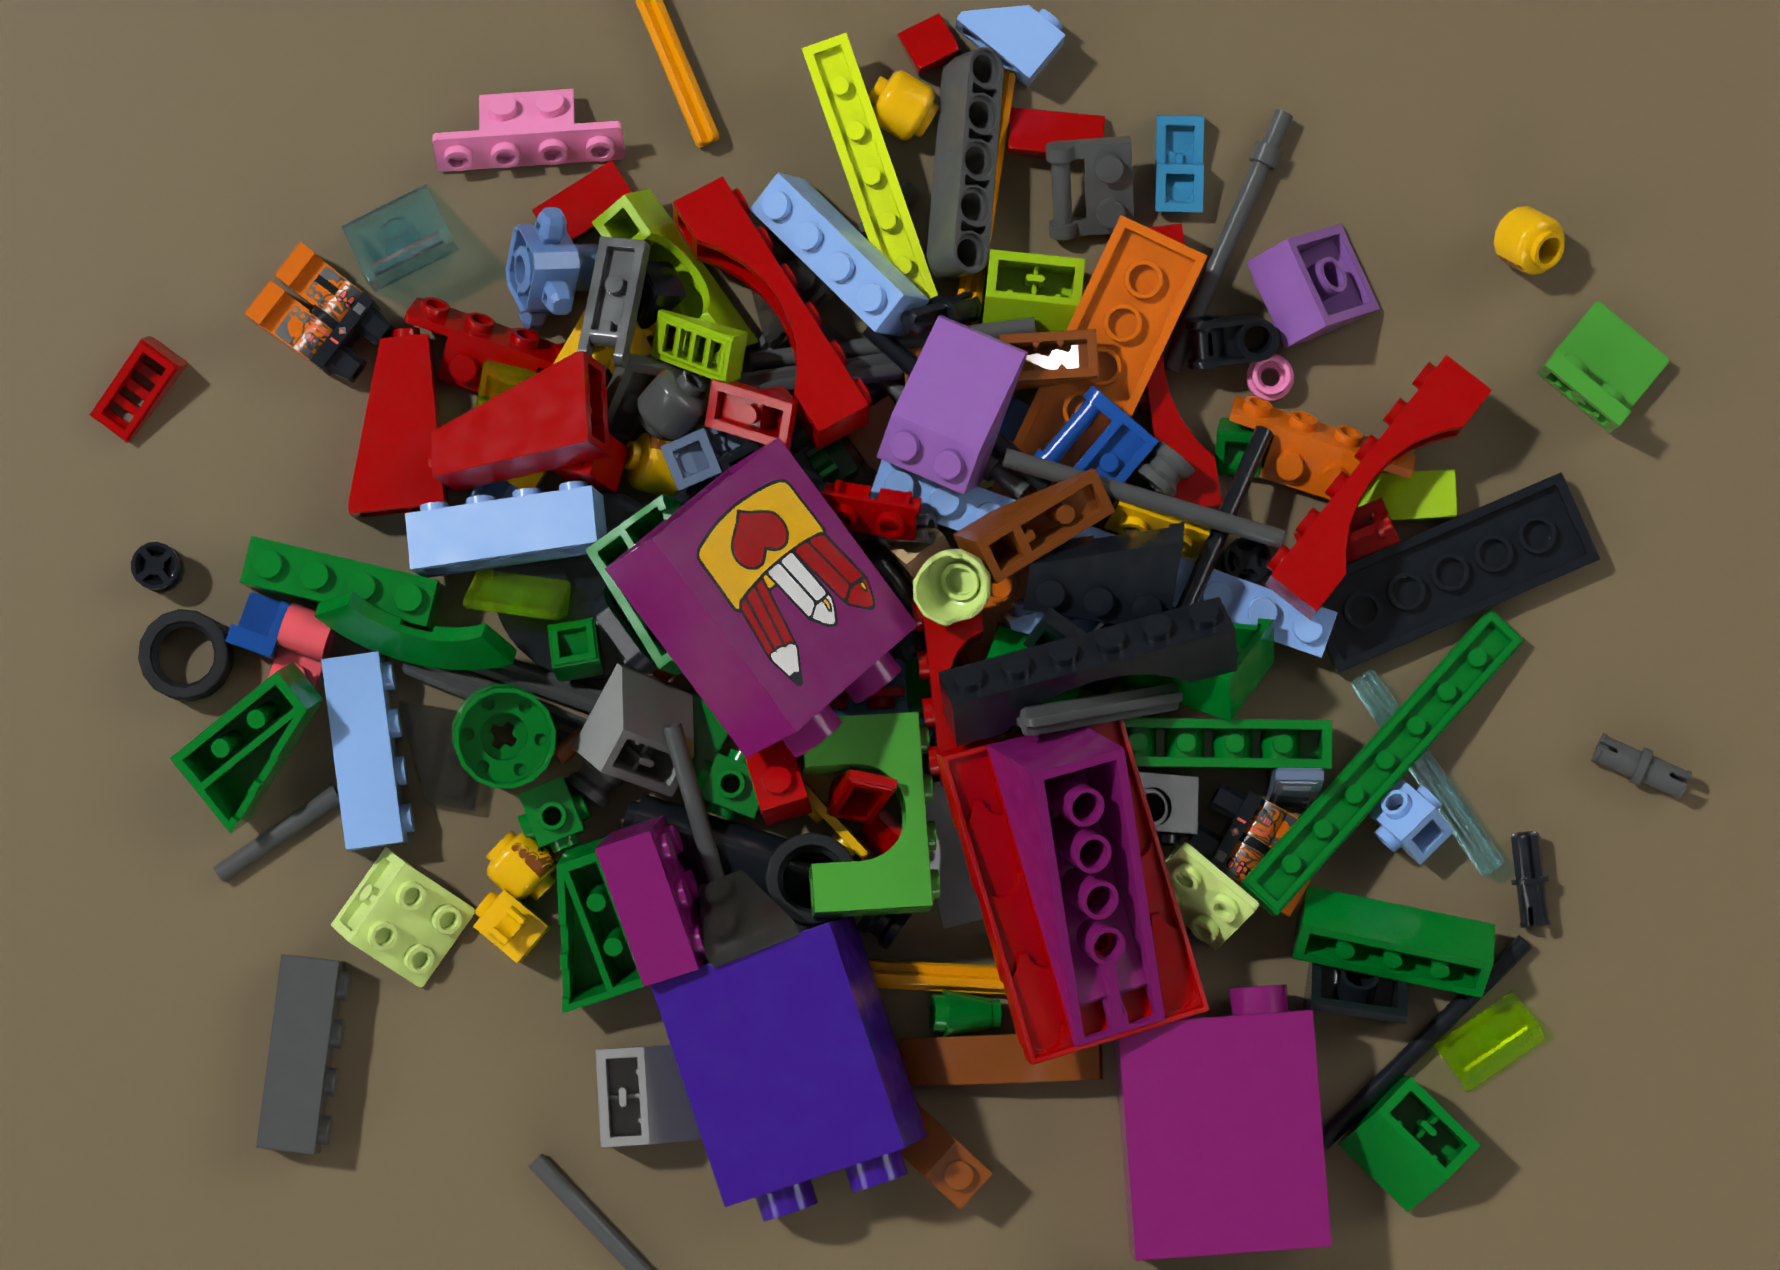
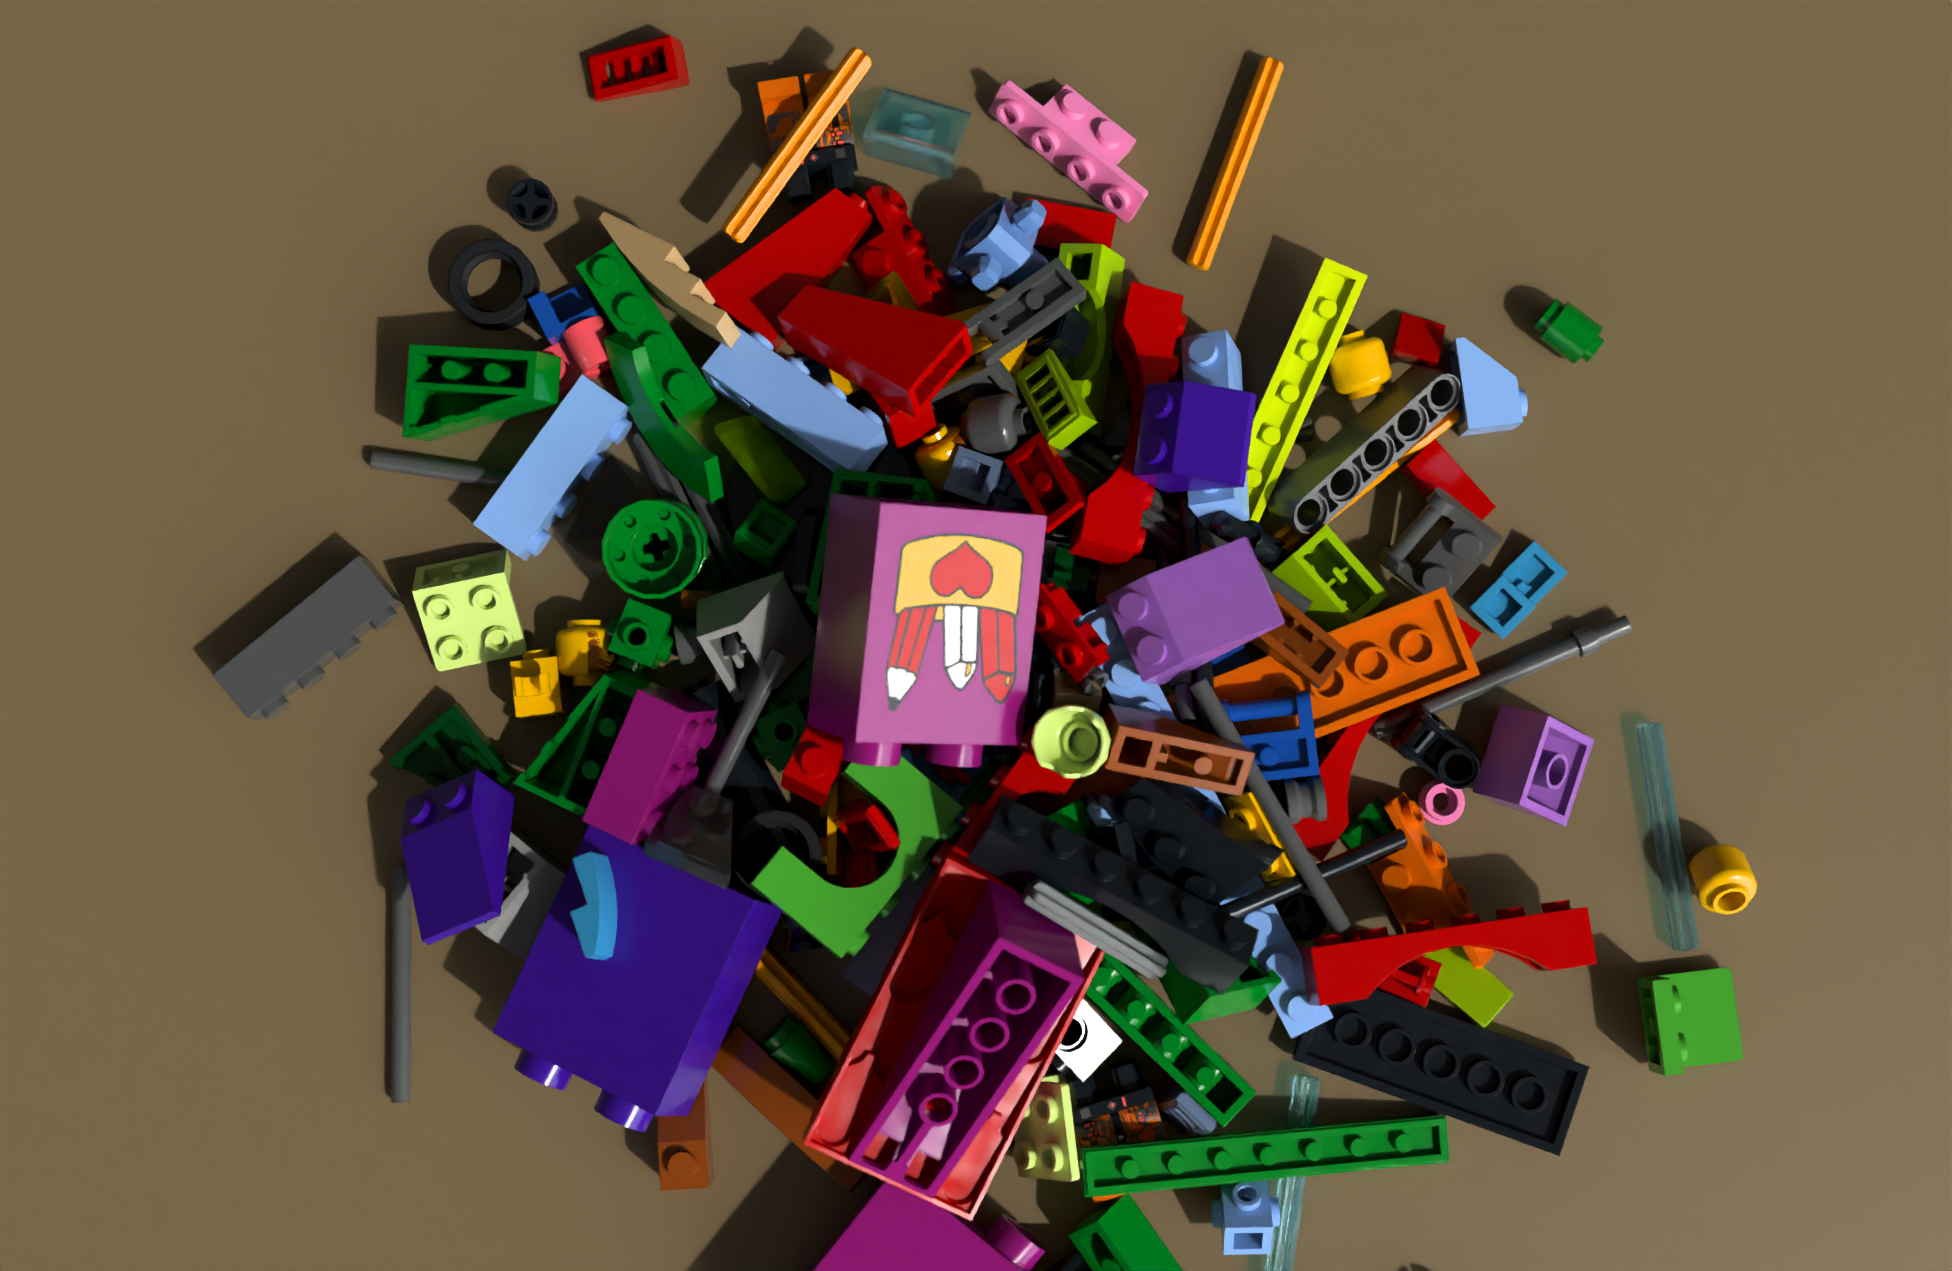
camera: 40 degrees right, 0 degrees up
(313, 524) = (669, 278): none -> tan slope
(321, 333) = (797, 145): none -> light orange axle
(497, 1038) = (451, 749): none -> dark green wing
(571, 1103) = (457, 853): none -> dark purple slope
(724, 1046) = (598, 920): none -> dark azure slope
(831, 276) = (1194, 436): none -> dark purple slope
(1461, 246) = (1667, 837): none -> clear light blue axle

